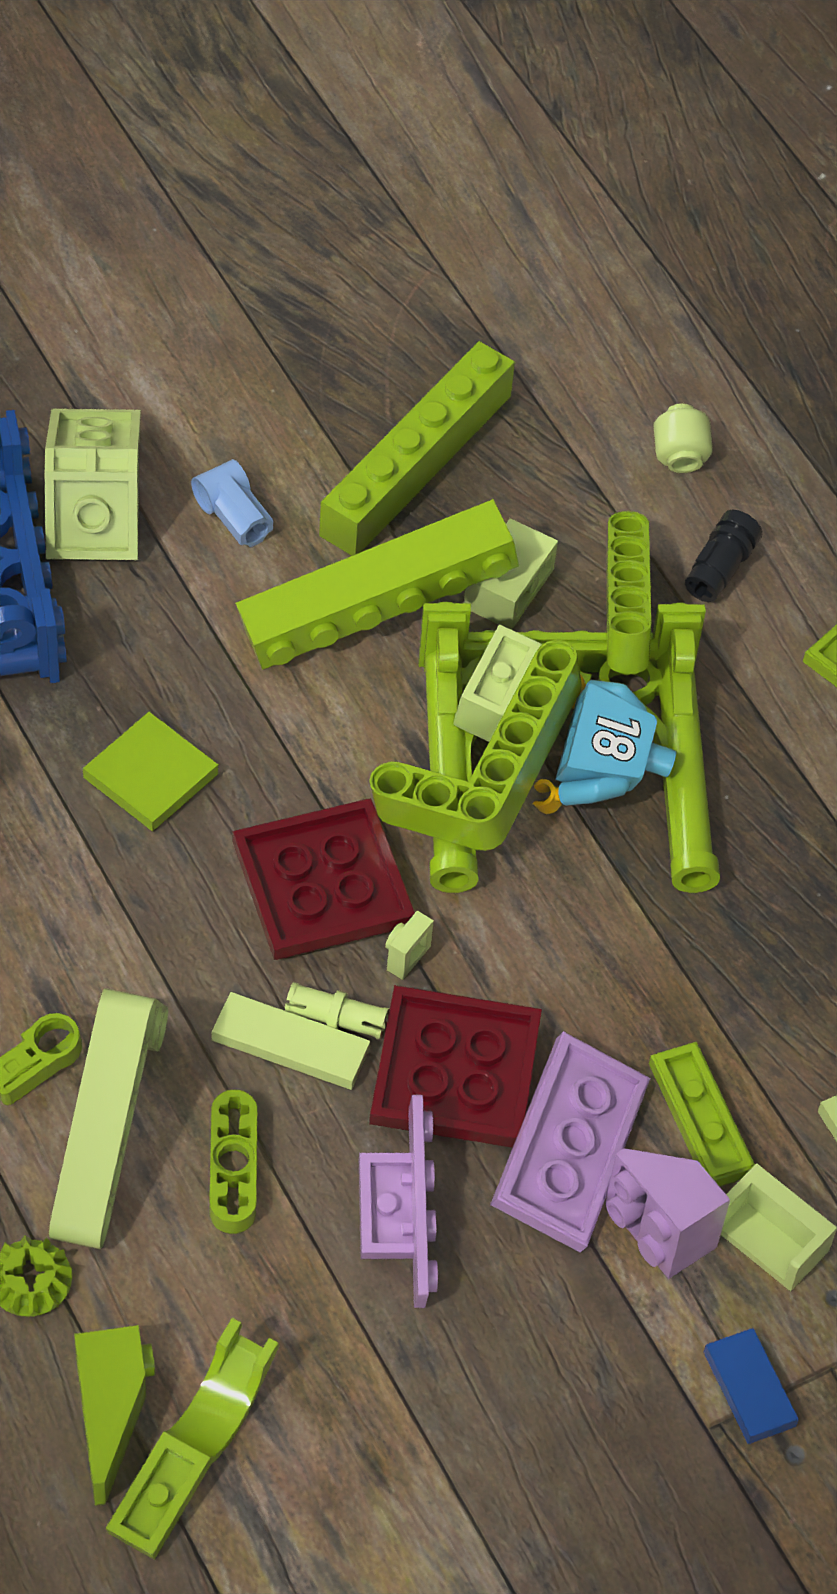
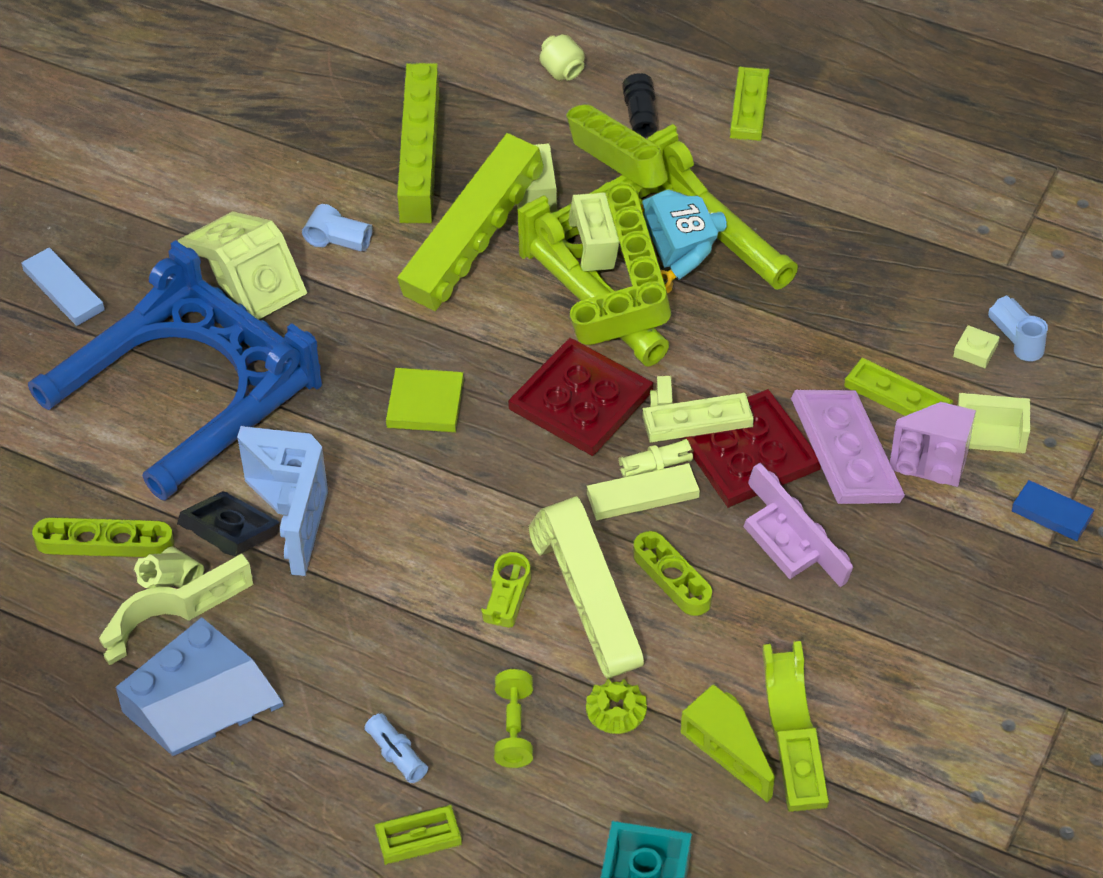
camera: 30 degrees left, 5 degrees down
(422, 991) = (697, 417): none -> yellowish green tile

